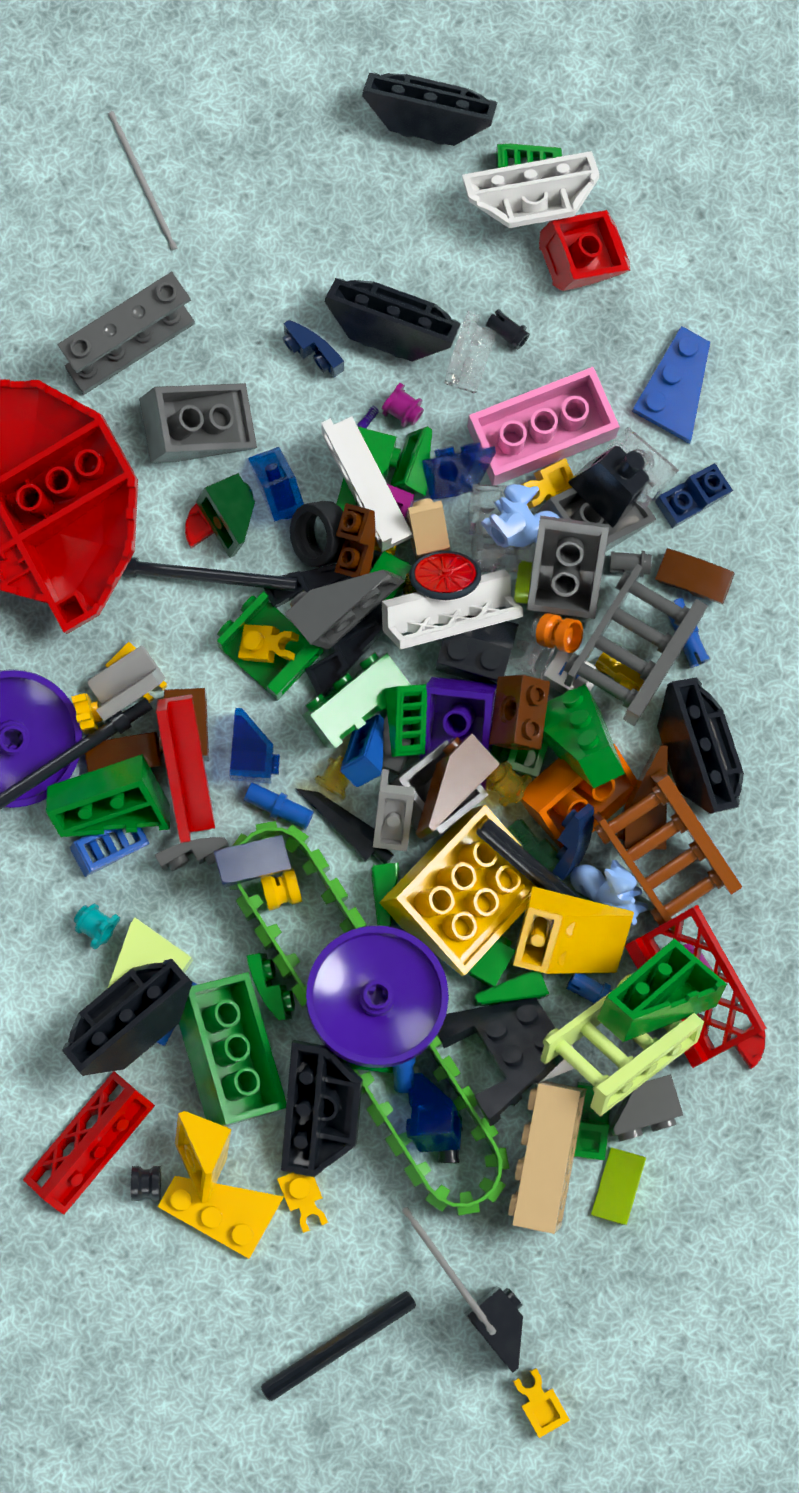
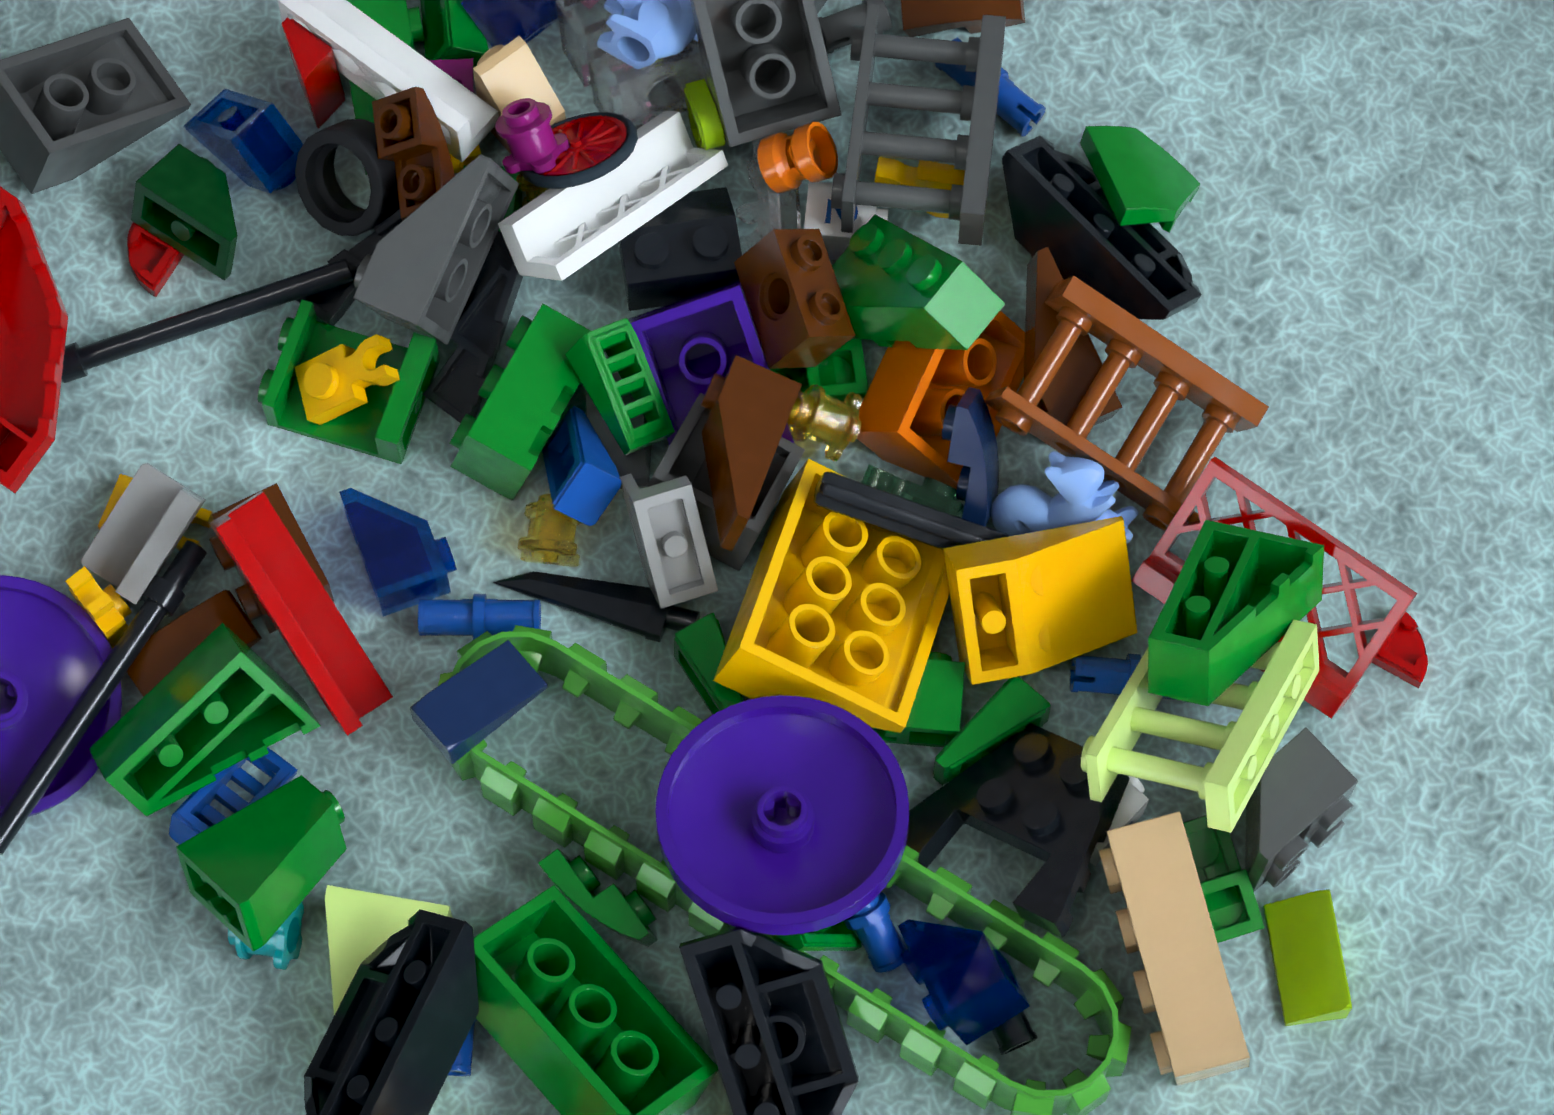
camera: 20 degrees left, 10 degrees down
(109, 889) = (265, 859): none -> green slope
(202, 849) = (385, 735): dark grey slope -> none
(281, 889) = (545, 742): yellow wheel -> none
(327, 464) = (315, 71): none -> red slope
(421, 558) = (529, 137): none -> magenta brick
(739, 722) = (1138, 176): none -> green slope

